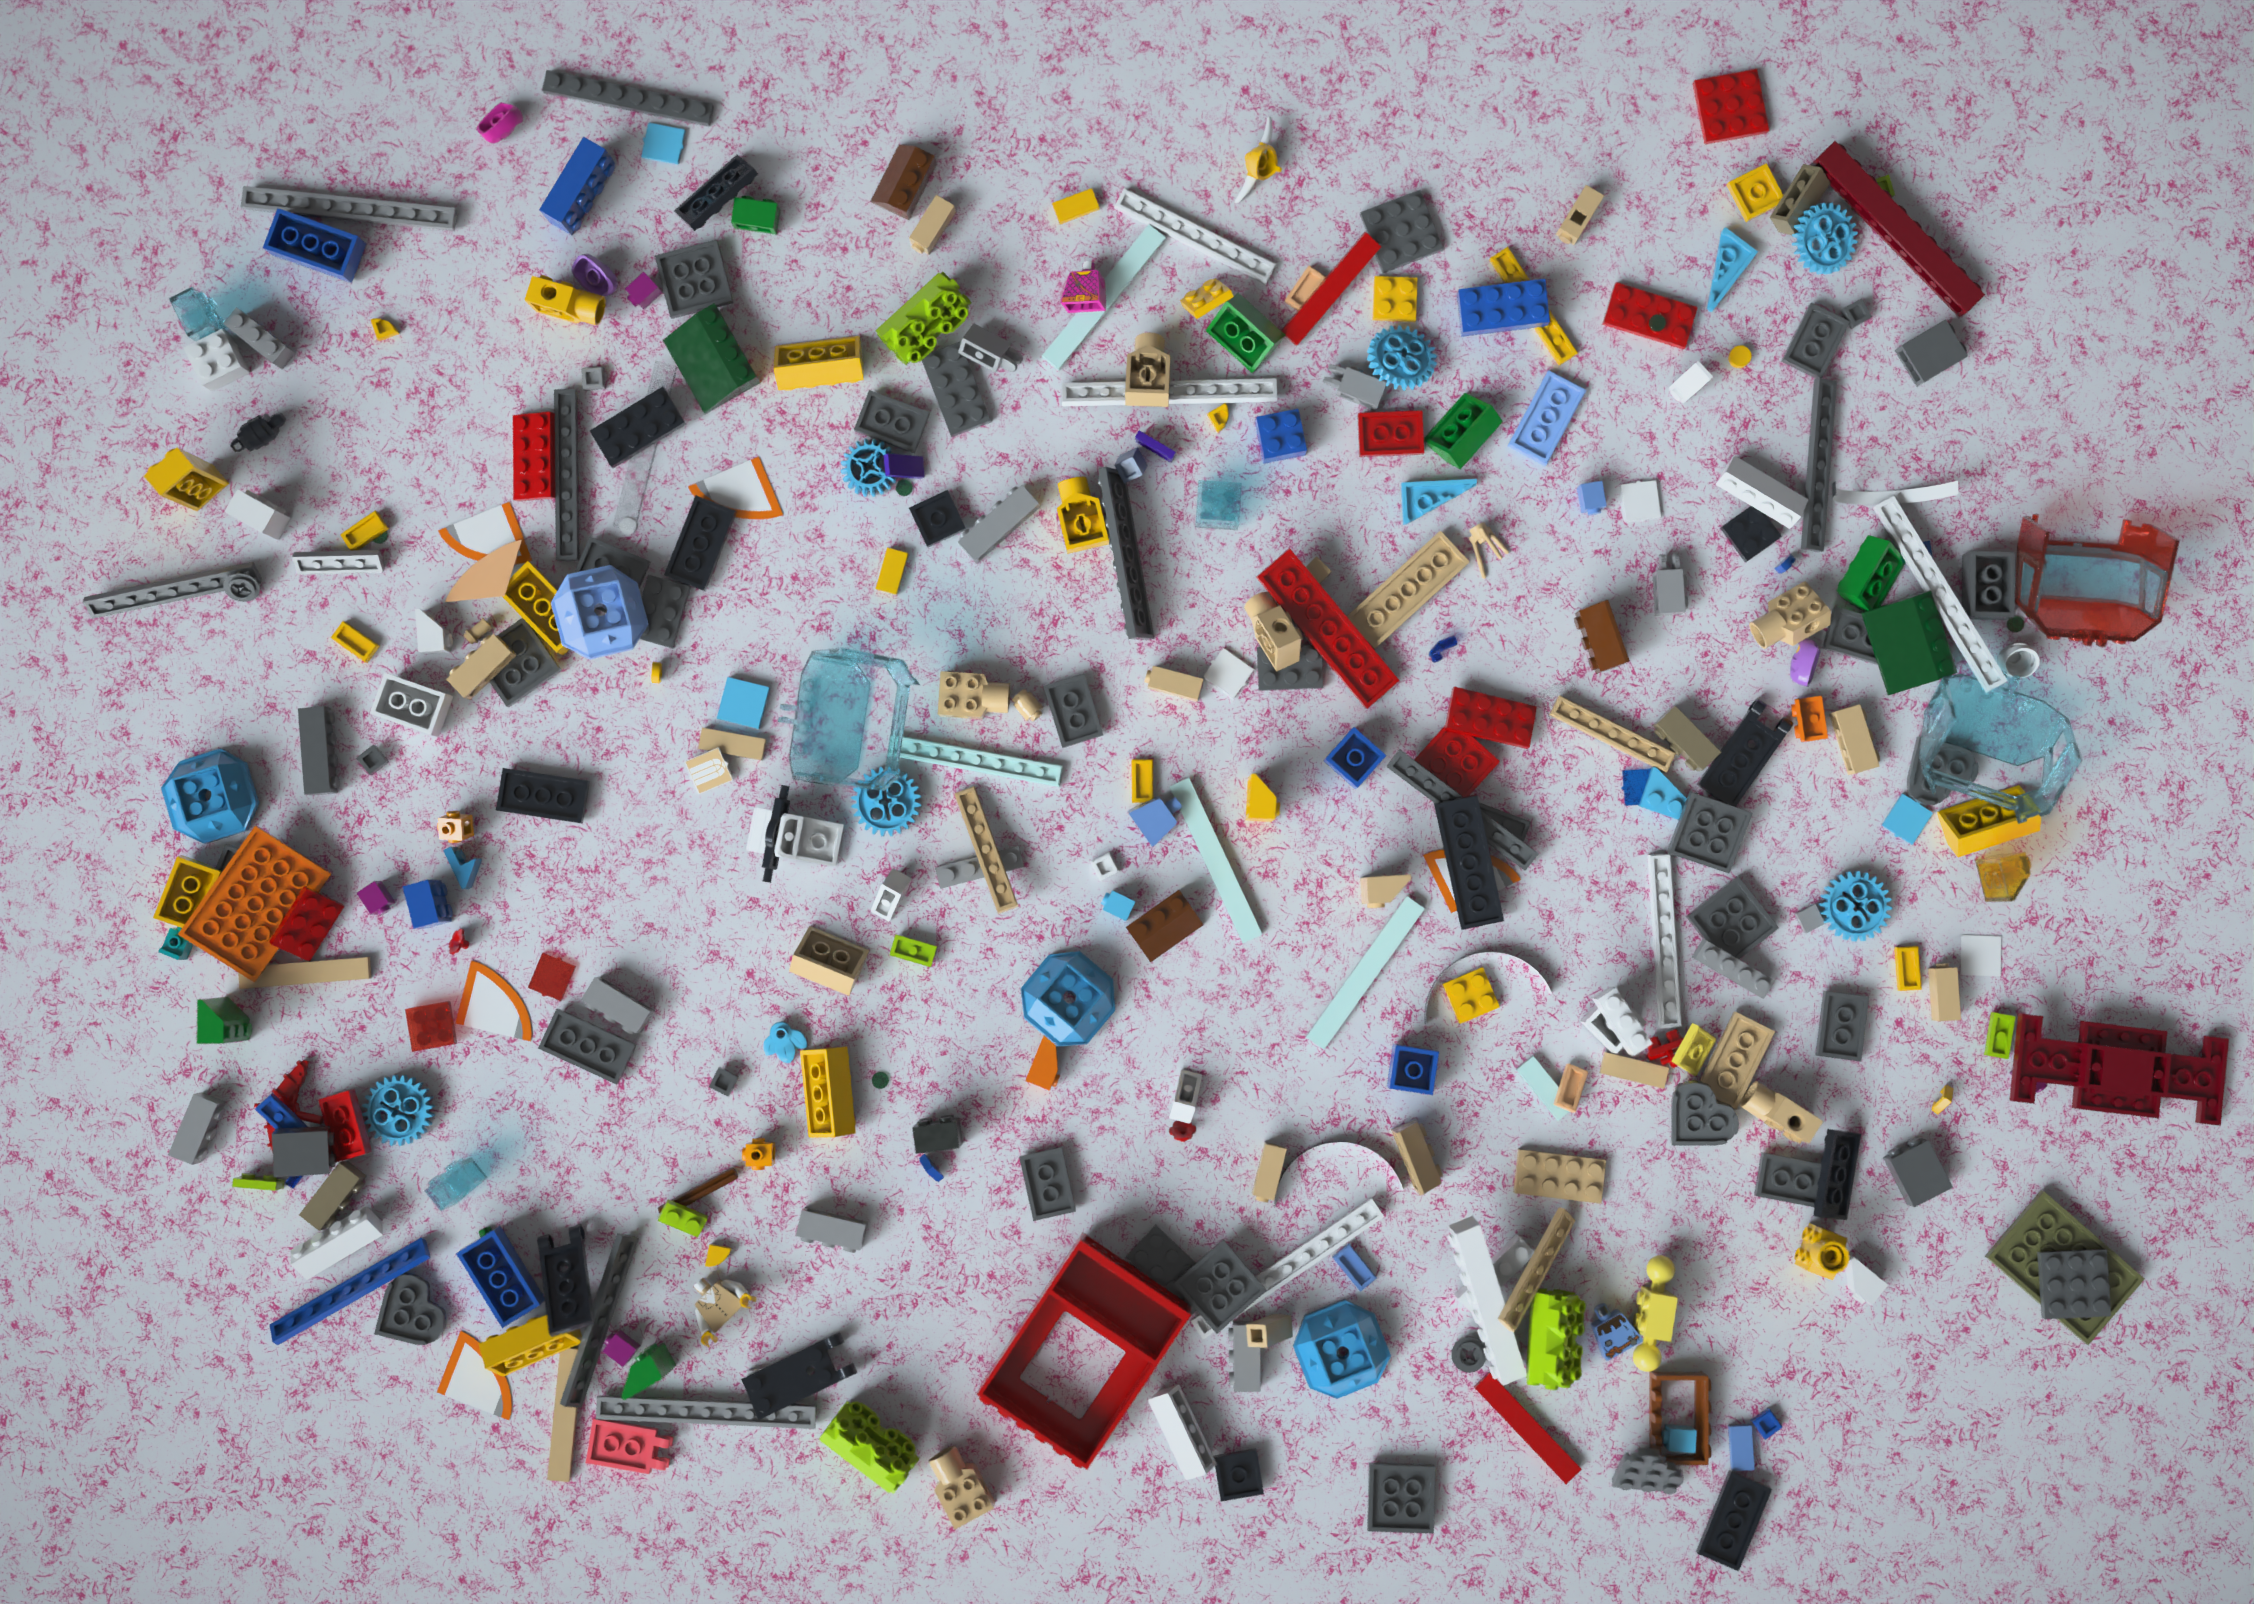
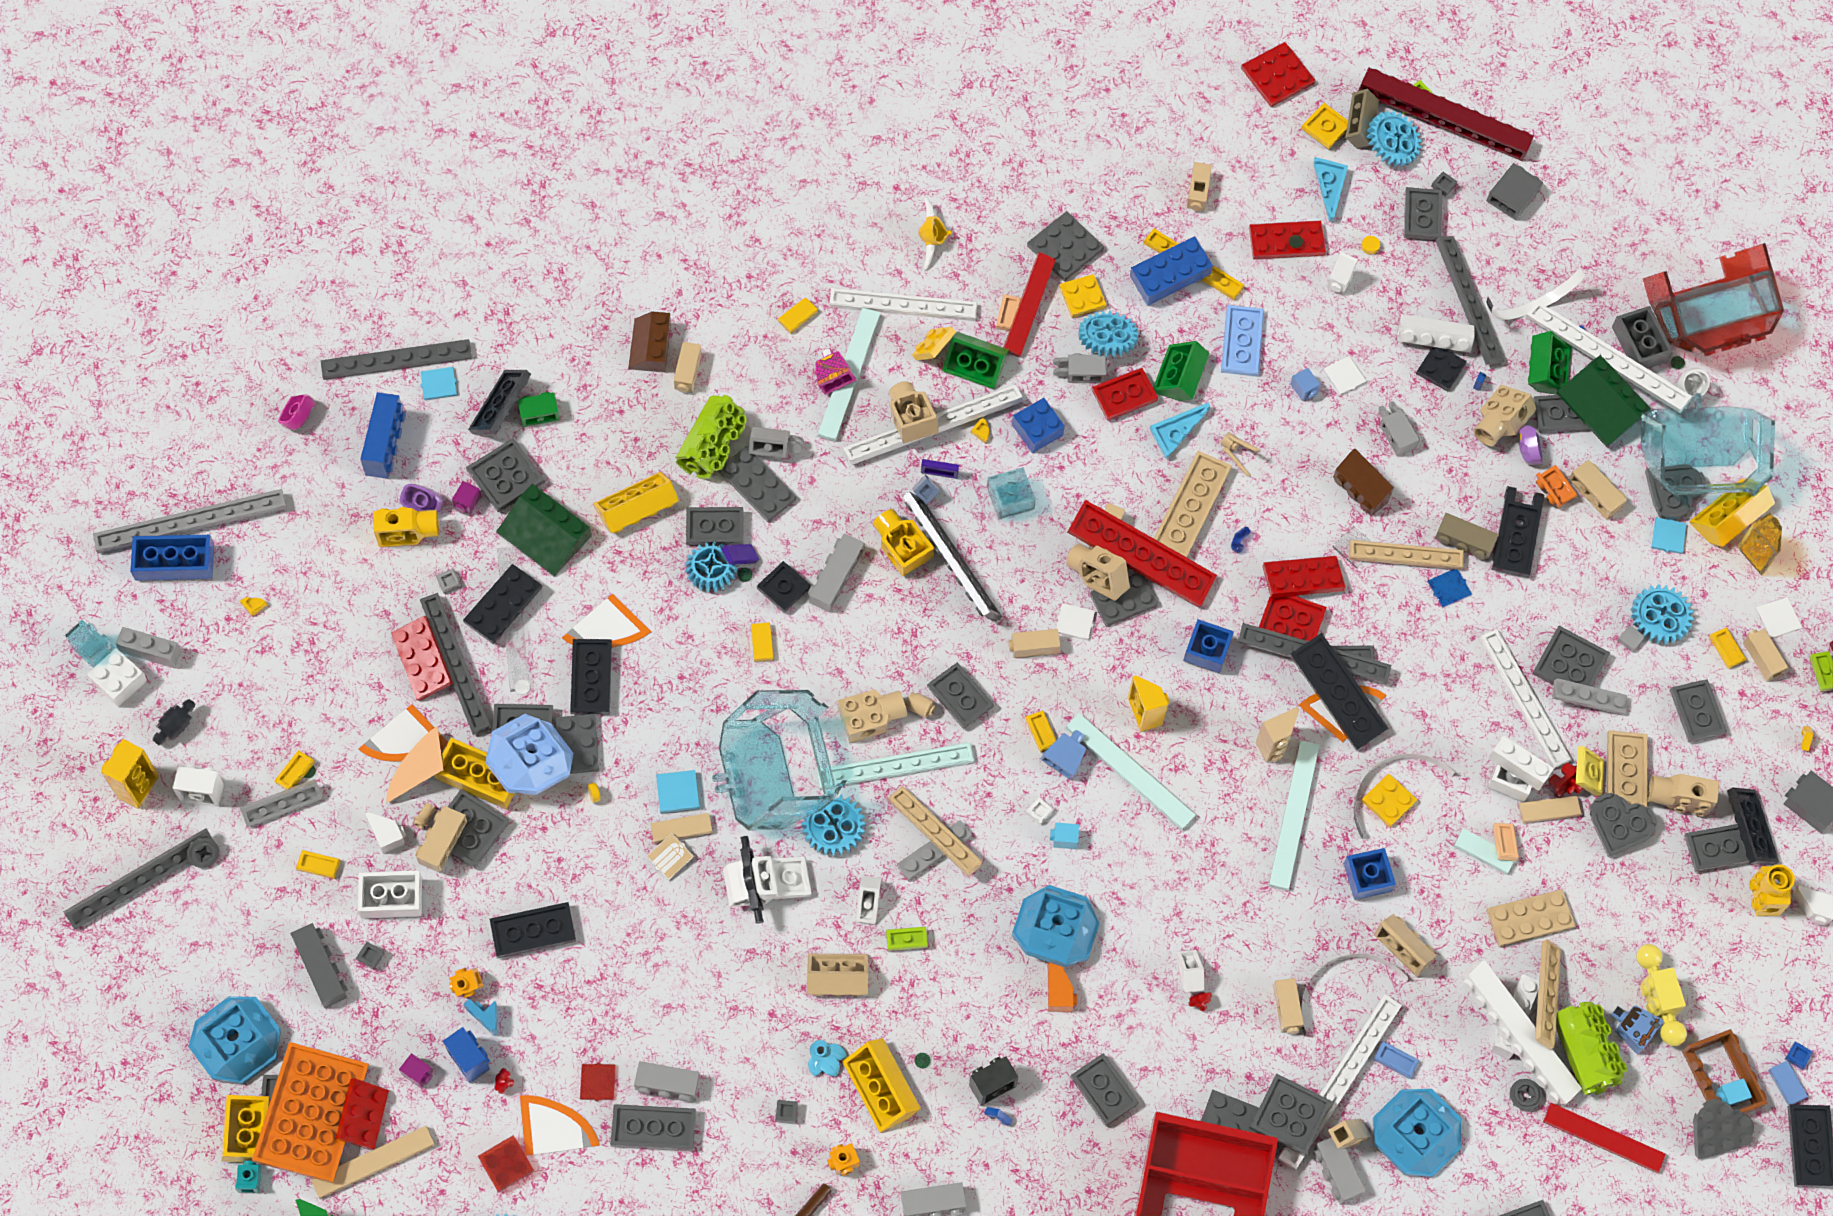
camera: 30 degrees left, 20 degrees down
(1164, 926) = (1110, 837): reddish brown slope -> none
(1662, 796) = (1472, 589): medium azure wing -> none
(1709, 832) = (1519, 599): dark grey plate -> none

